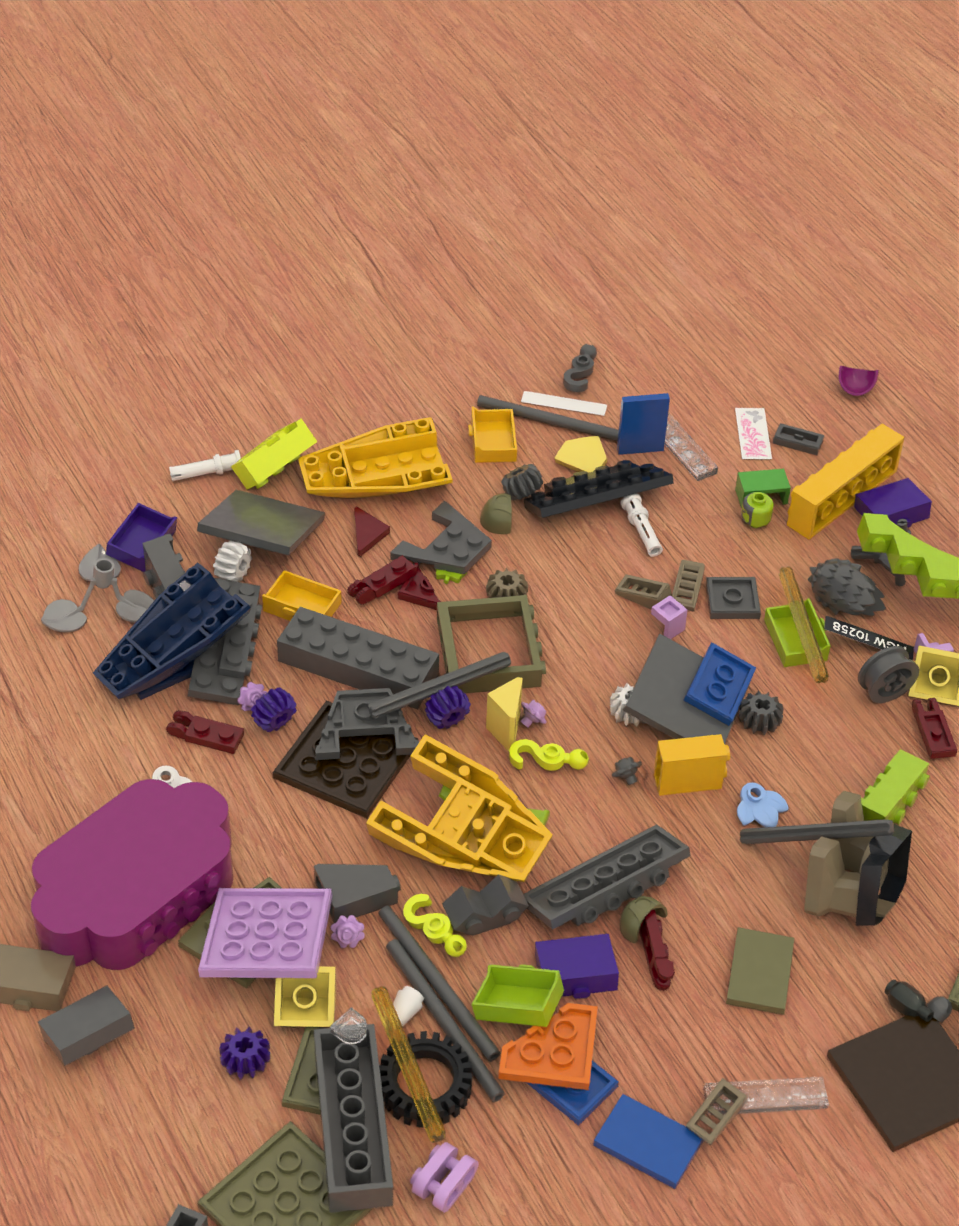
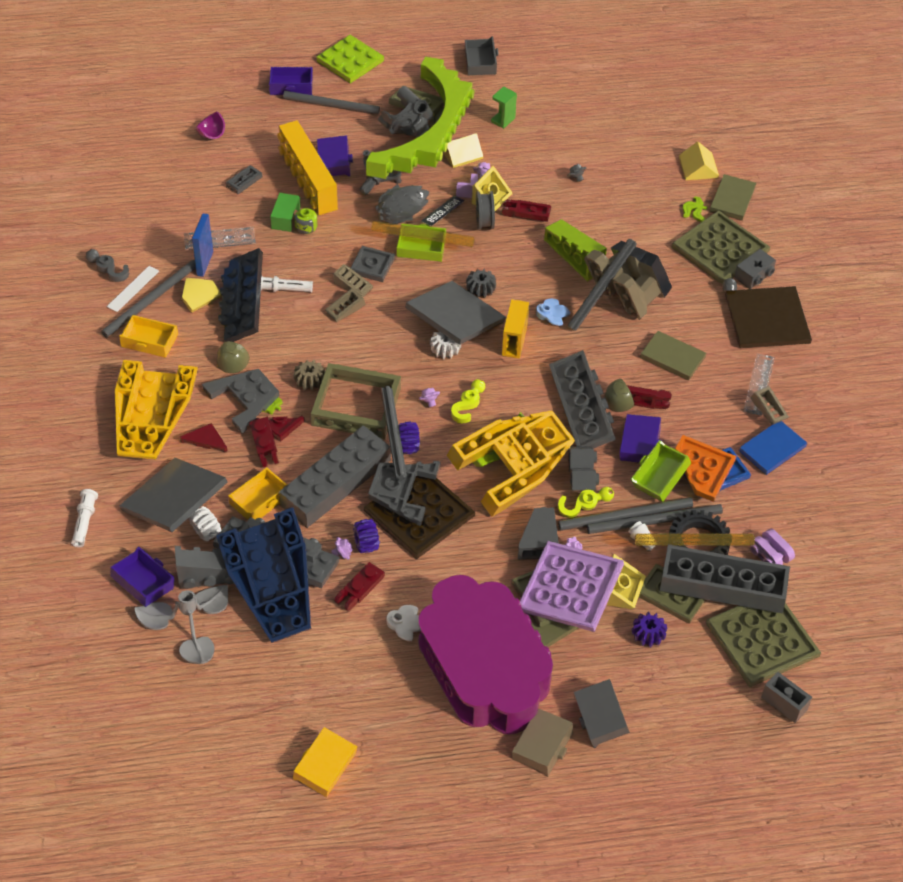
camera: 70 degrees left, 5 degrees up
(273, 454) = (103, 466): neon yellow wedge -> none
(350, 1027) = (670, 555): clear tile -> none
(504, 712) = (433, 406): light yellow slope -> none
(522, 481) = (213, 332): dark grey gear -> none
(626, 769) = (498, 364): dark grey plant -> none
(672, 615) = (380, 295): lavender panel -> none
(720, 684) = (453, 292): blue tile -> none
(753, 433) = (223, 200): white sticker -> none
(907, 1000) = (720, 296): pearl dark grey plant -> none

